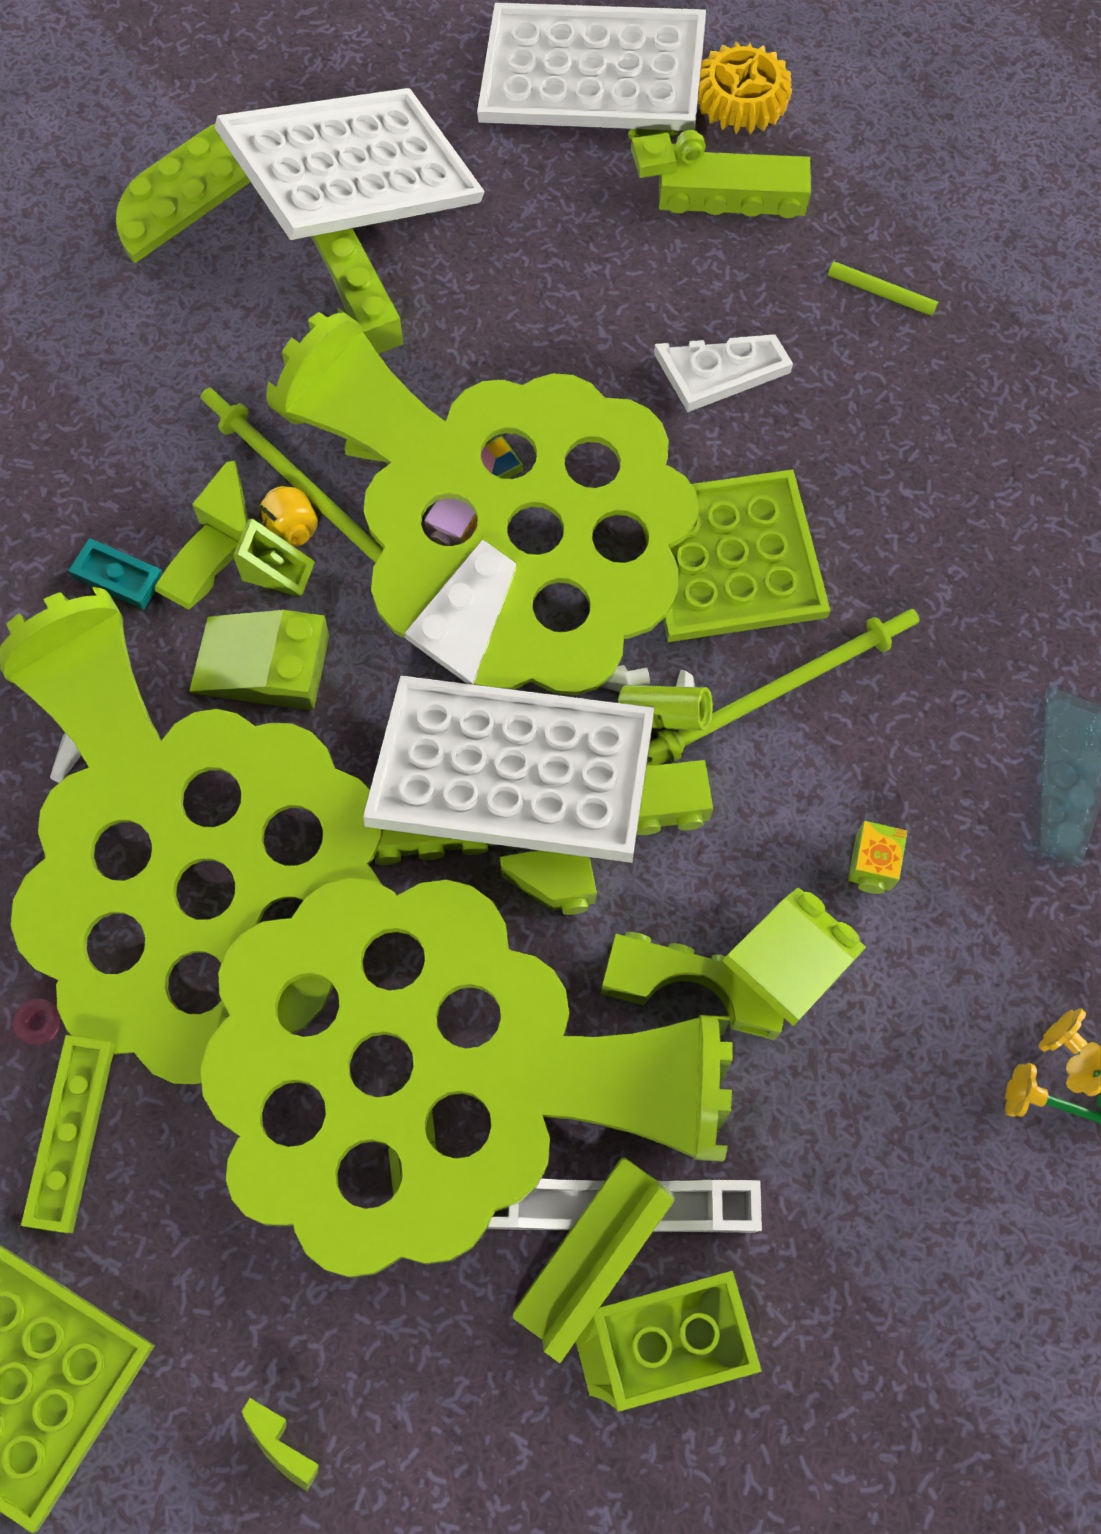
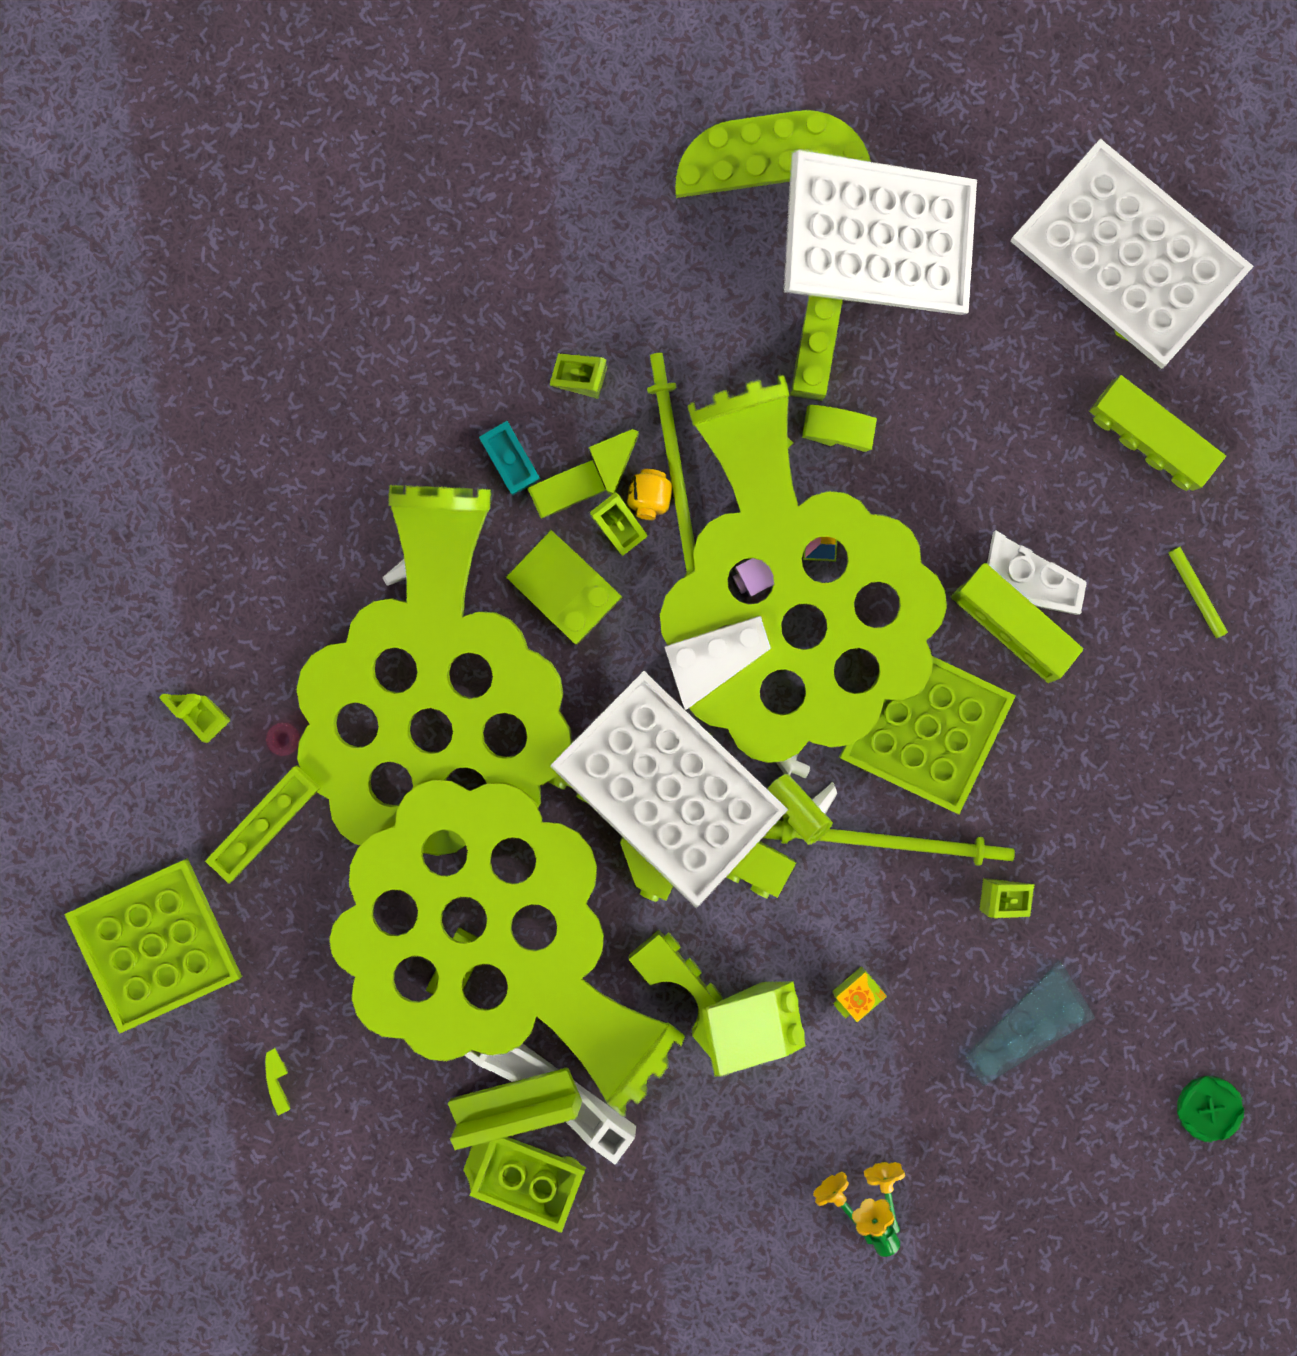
camera: 35 degrees right, 20 degrees up
(140, 453) = (579, 374): none -> lime slope
(428, 350) = (840, 427): none -> lime slope
(658, 156) = (1112, 378): lime plate -> none
(741, 409) = (1017, 623): none -> lime panel
(744, 87) = (1238, 362): yellow gear -> none
(940, 661) = (1006, 898): none -> lime slope

